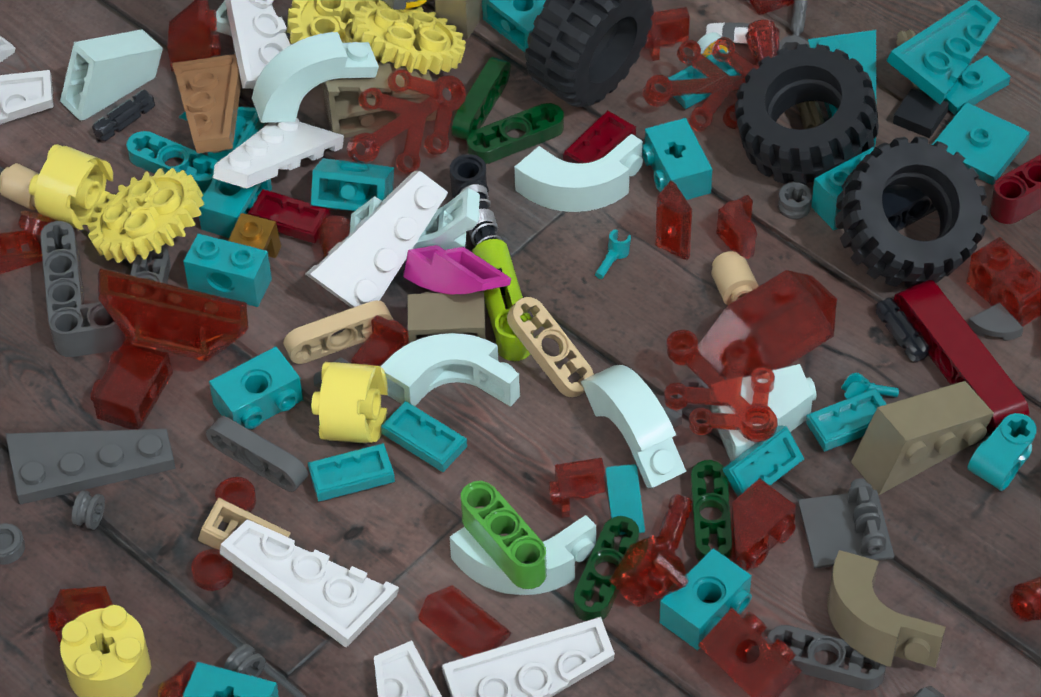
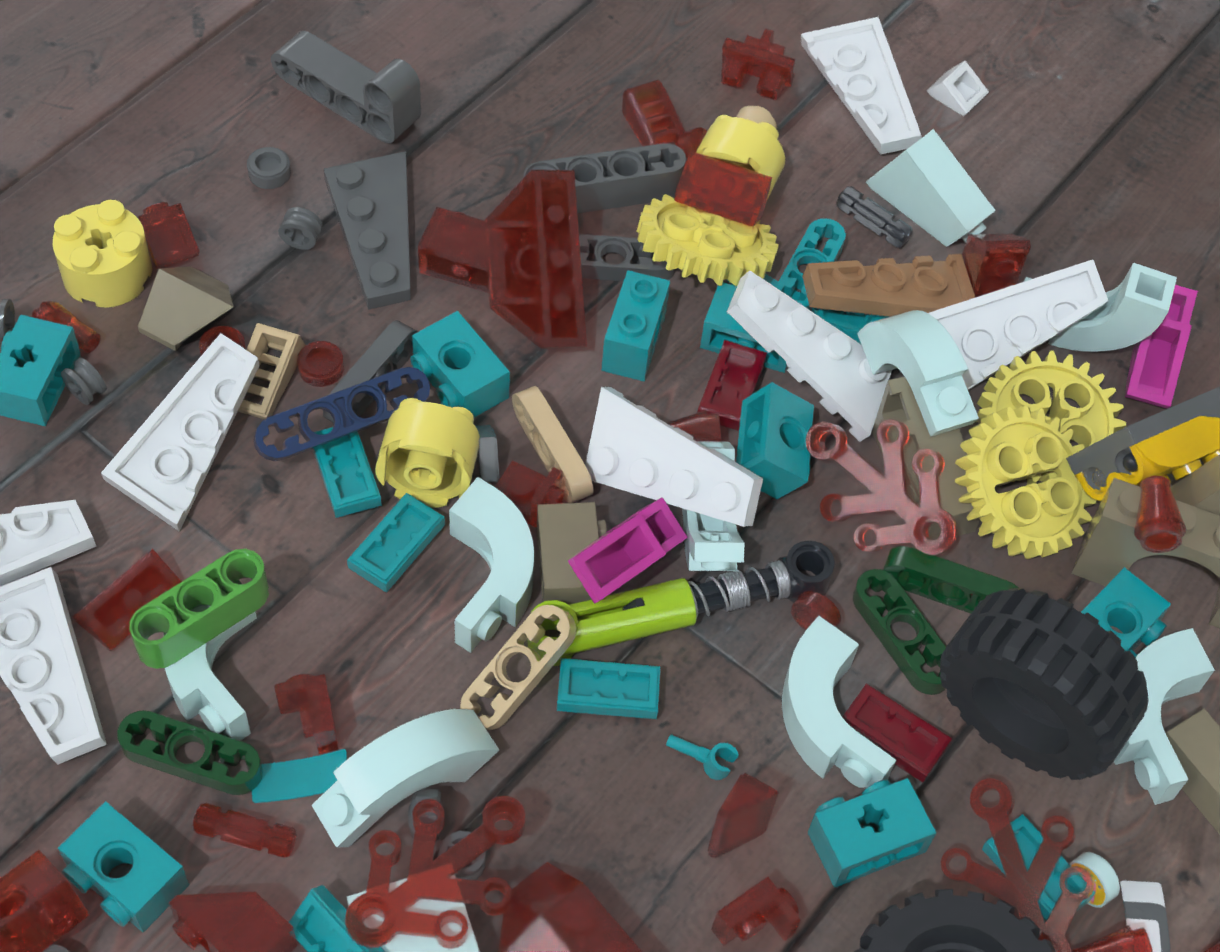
camera: 80 degrees right, 5 degrees up
(108, 191) = (723, 189): none -> clear red slope
(168, 591) = (182, 304): none -> dark tan slope
(257, 233) = (683, 341): pearl gold bracket -> none
(318, 458) = (340, 408): none -> dark blue beam
(502, 177) = (810, 606): none -> clear red tile
(562, 299) = (608, 688): none -> teal plate
(649, 572) = (152, 791): clear red slope -> none
(667, 28) = (1123, 815): clear red bracket -> none
(717, 499) = (253, 863): dark green beam -> none
(732, 276) = (661, 909): tan brick -> none

